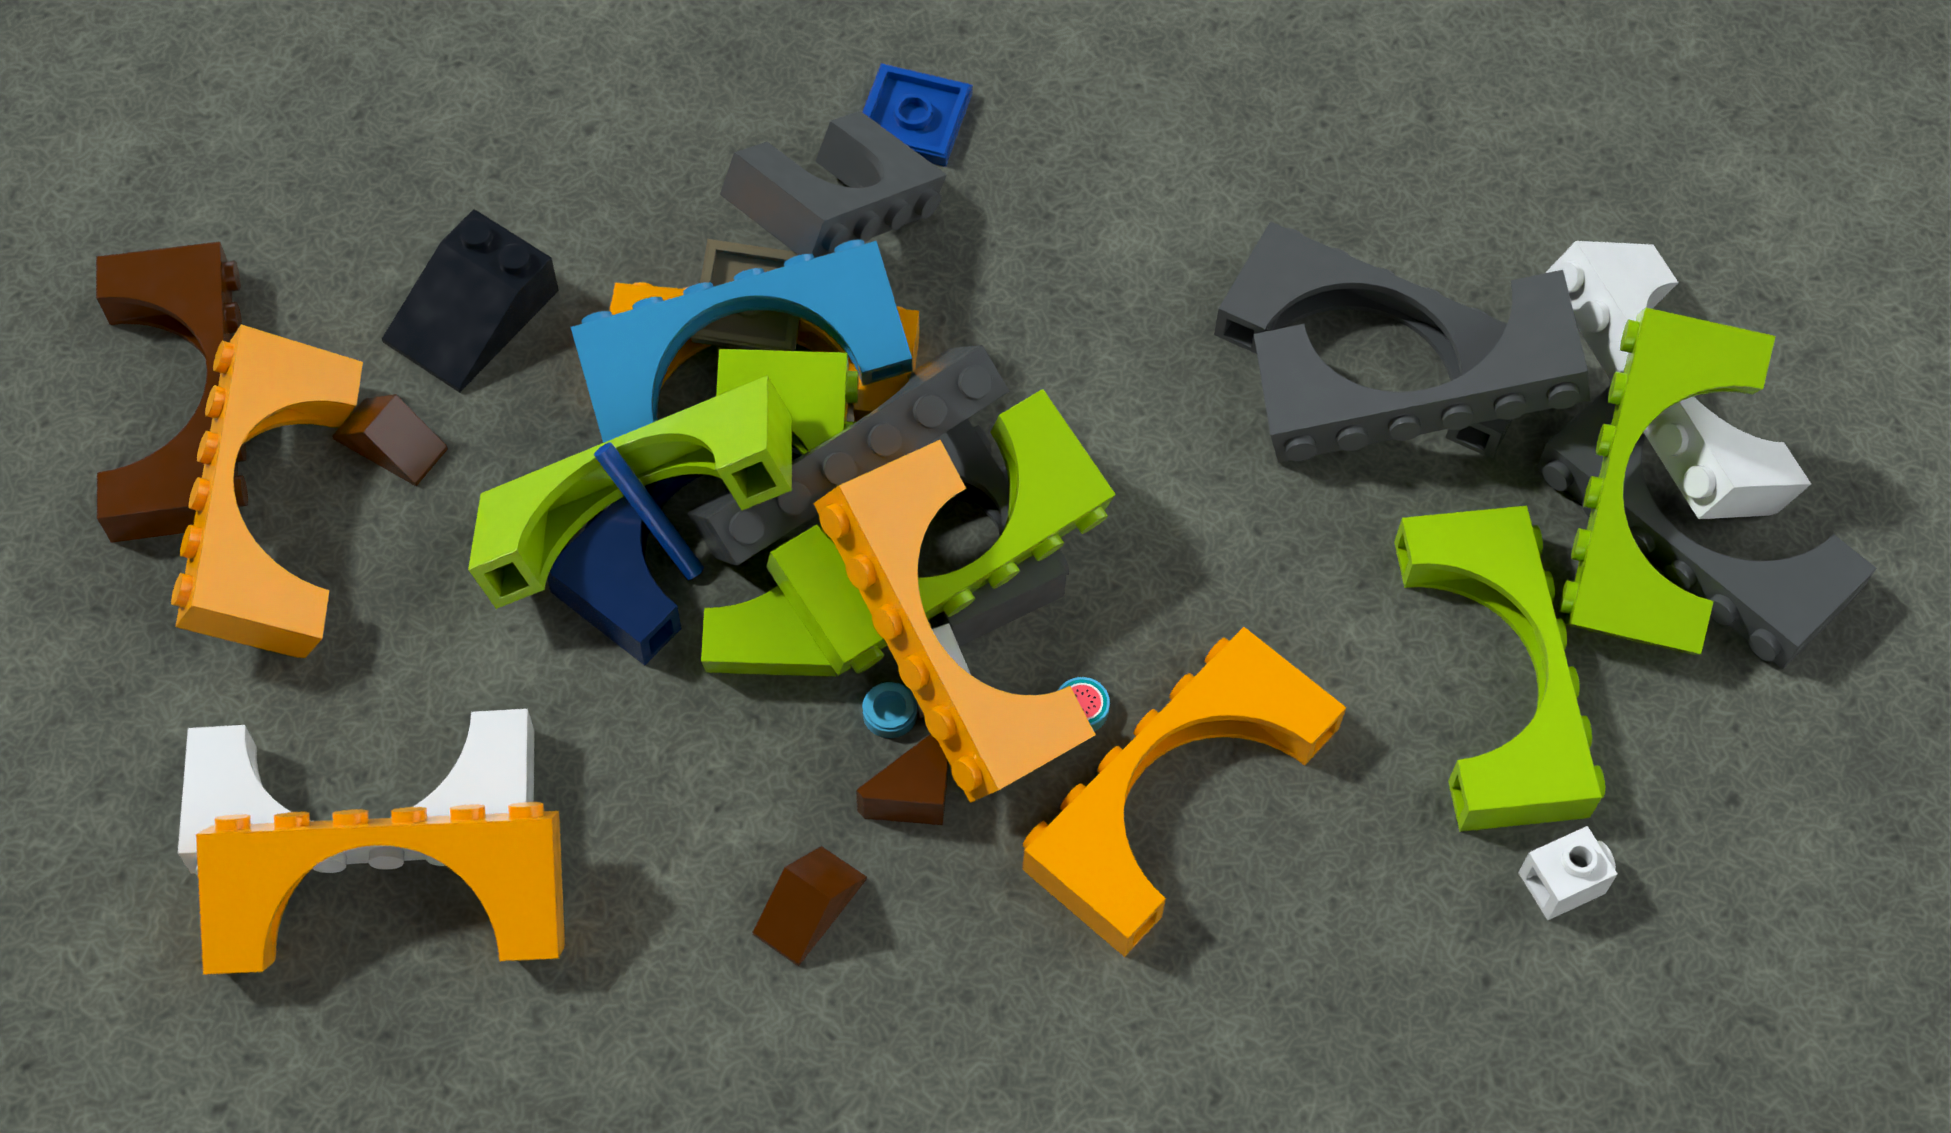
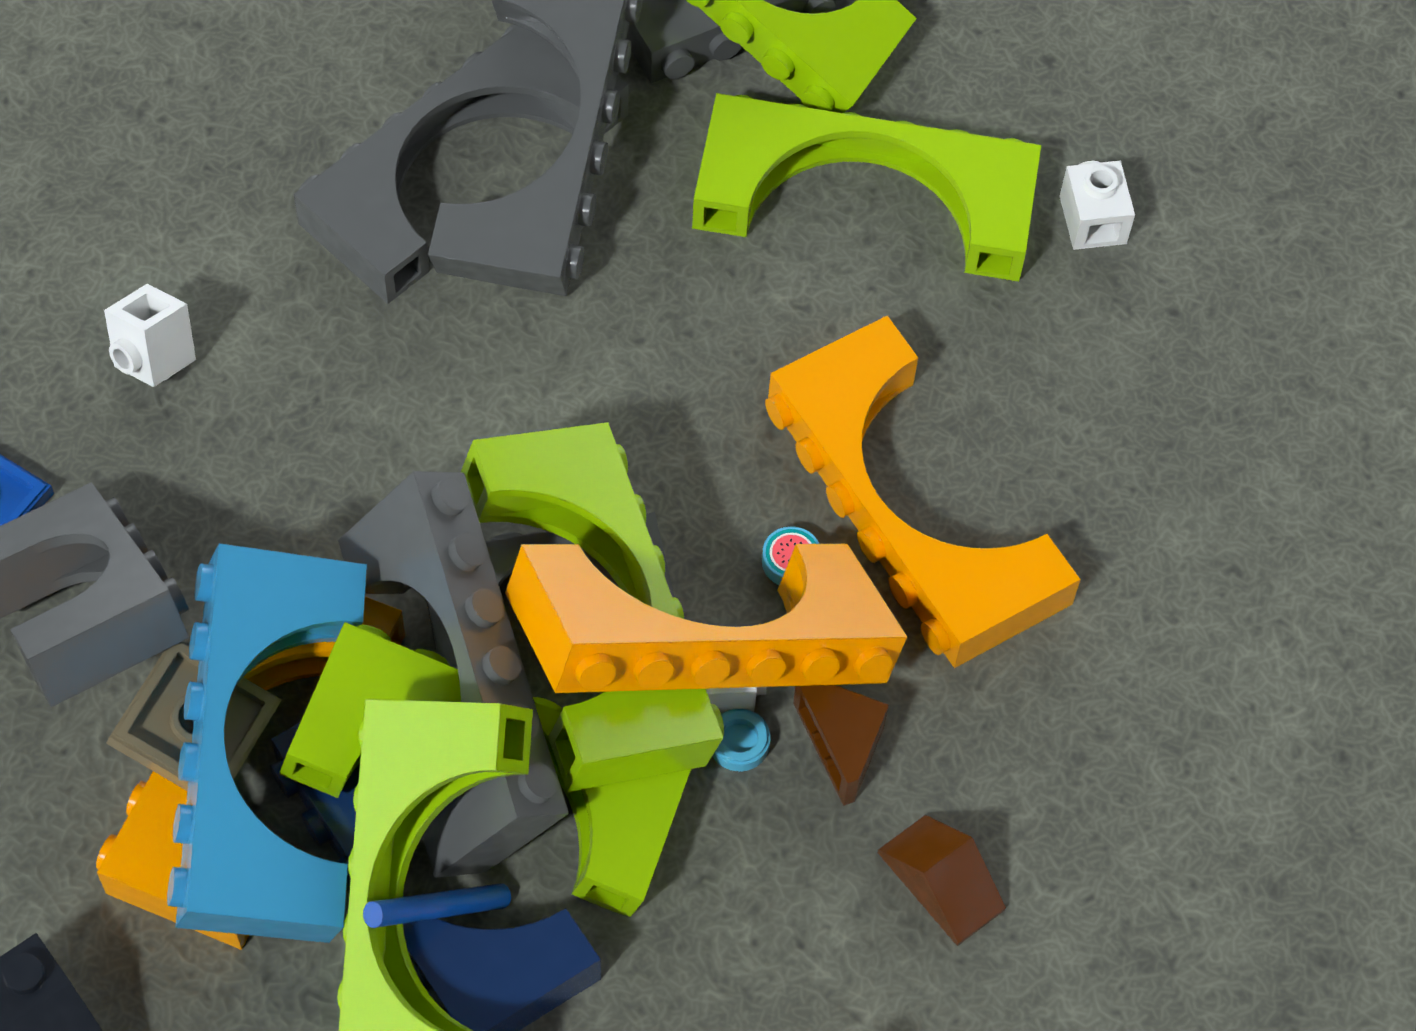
camera: 75 degrees left, 0 degrees up
(1094, 169) = (150, 335): none -> white brick

